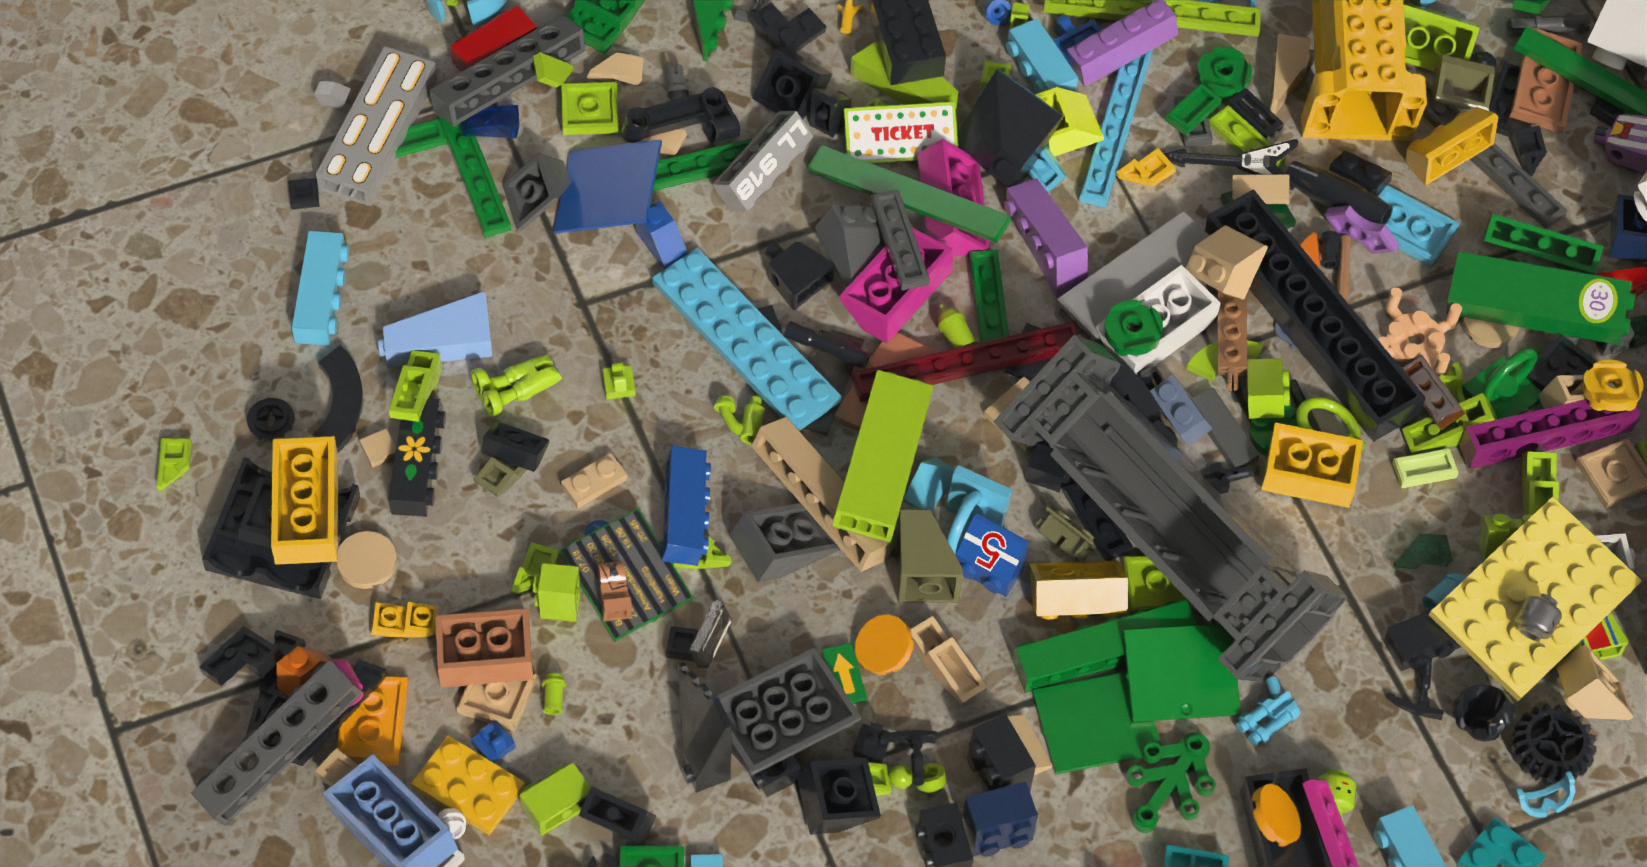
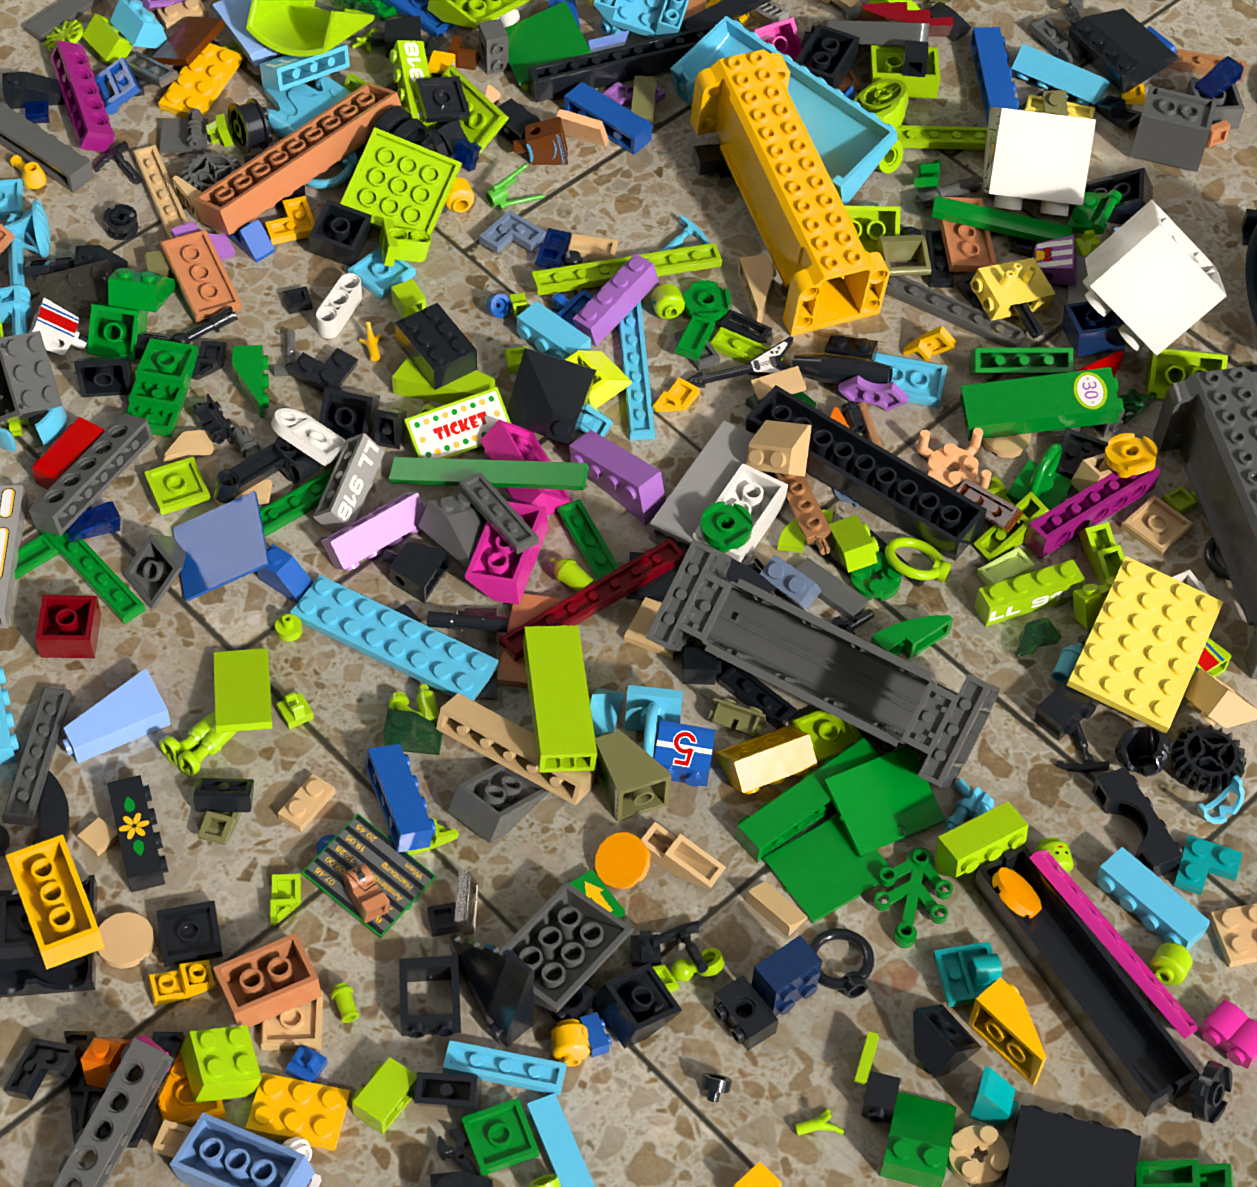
camera: 20 degrees left, 5 degrees down
(349, 347) = (37, 757): none -> dark grey tile
(409, 713) = (220, 1063): none -> lime brick
(415, 385) = (114, 769): lime slope -> none
(426, 223) = (68, 626): none -> dark red brick
(429, 574) = (189, 933): none -> black plate
(551, 70) = (131, 462): lime tile -> none
(557, 592) = (315, 910): lime brick -> none
(572, 344) = (242, 690): none -> lime tile
(645, 293) = (288, 627): none -> lime tile
(646, 689) = (429, 969): none -> black window
(655, 59) = (219, 428): none -> black hinge
(683, 812) = (505, 1067): none -> medium azure plate
(724, 442) = (411, 732): none -> clear green slope
(740, 95) = (308, 435): none -> white tile
(757, 809) = (570, 1042): none -> yellow head
(769, 219) = (375, 531): none -> brick
(786, 810) = (598, 1040): none -> blue piece
(999, 755) = (764, 922): black brick -> none
(1069, 848) = (854, 982): none -> black piece
(1180, 58) = (667, 301): none -> lime head
(1261, 748) = (980, 840): none -> lime slope
(1286, 508) = (913, 635): none -> green slope
(1312, 465) = (917, 592): yellow slope -> none
(1436, 502) = (1028, 593): none -> lime brick
(1439, 750) = (1120, 794): none -> black arch
(1452, 144) = (916, 304): yellow slope -> none
(1452, 192) = (931, 344): none -> yellow slope
(1538, 617) = (1159, 656): flat silver head -> none
(1569, 161) = (1013, 291): none -> light yellow piece

